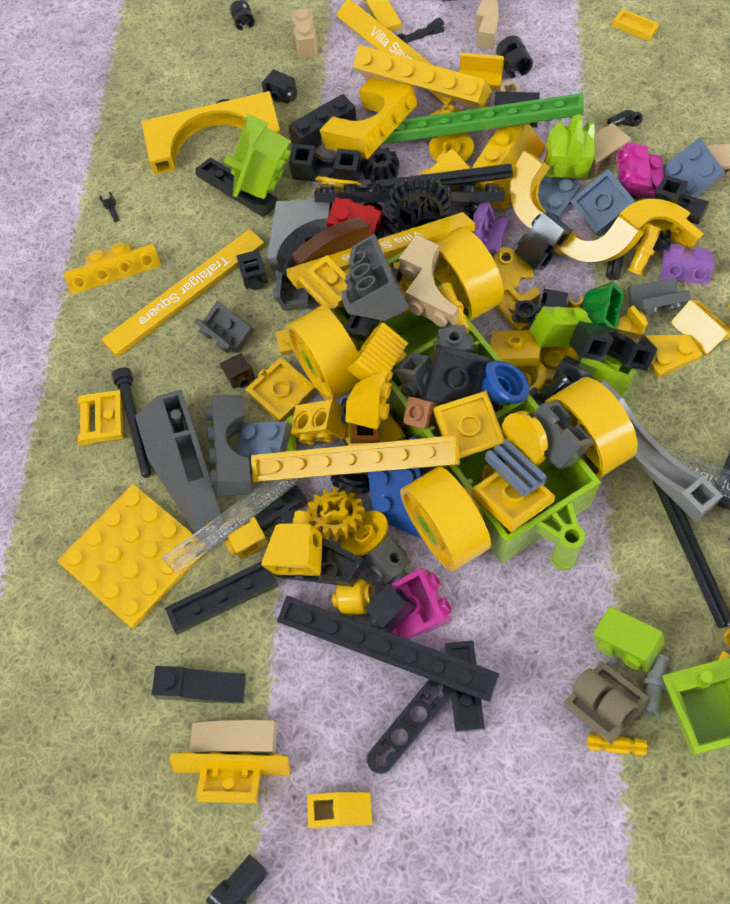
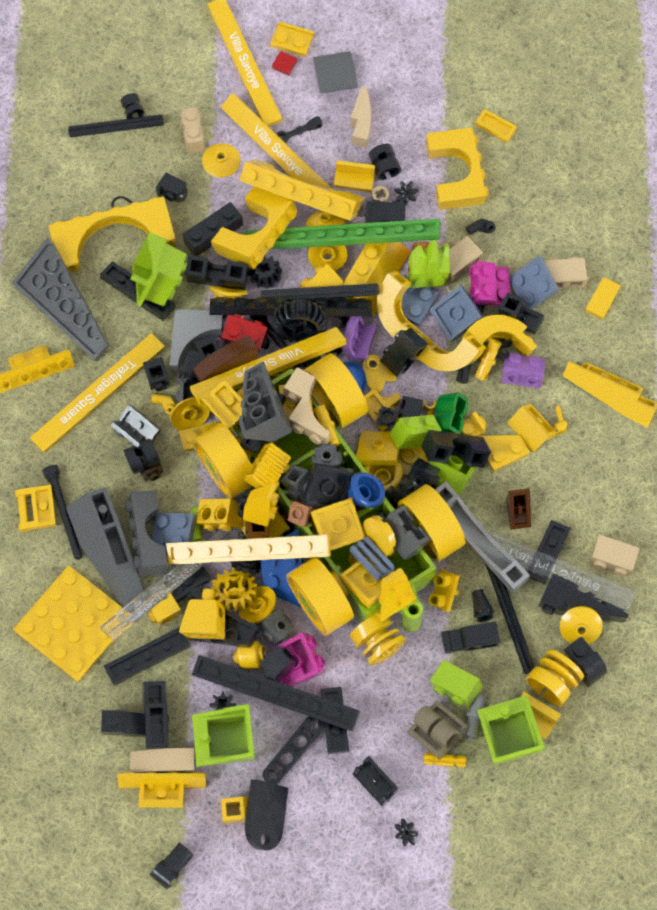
camera: 10 degrees left, 5 degrees up
(110, 204) = (24, 306): black hand -> none
(145, 190) = (53, 290): none -> dark grey wing
(224, 34) = (116, 125): none -> black axle
(226, 673) = (155, 714): none -> black slope
(227, 355) = (141, 456): none -> black wheel
(262, 300) = (166, 401): none -> yellow arm
(277, 317) = (189, 414): none -> yellow dish
(280, 389) = (185, 483): yellow plate -> none
(313, 705) = (223, 736): none -> lime piece
(314, 670) = (223, 699): none -> black gear
(334, 64) = (221, 167): none -> yellow dish
(369, 818) = (265, 814): none -> black tile
(516, 571) = (380, 642): none -> yellow wheel
(522, 772) = (375, 781): none -> black hinge
(538, 85) = (409, 191): none -> black plant
(548, 513) = (395, 594): none -> yellow wing
(566, 849) = (405, 832): none -> black plant
(601, 41) = (460, 144): none -> yellow arch
(606, 516) = (444, 590): none -> yellow hips
(644, 578) = (471, 638): none -> black piece
(654, 538) = (481, 606): none -> black cone
(655, 294) = (496, 400): dark grey bracket -> none
(695, 417) = (519, 508): none -> reddish brown slope

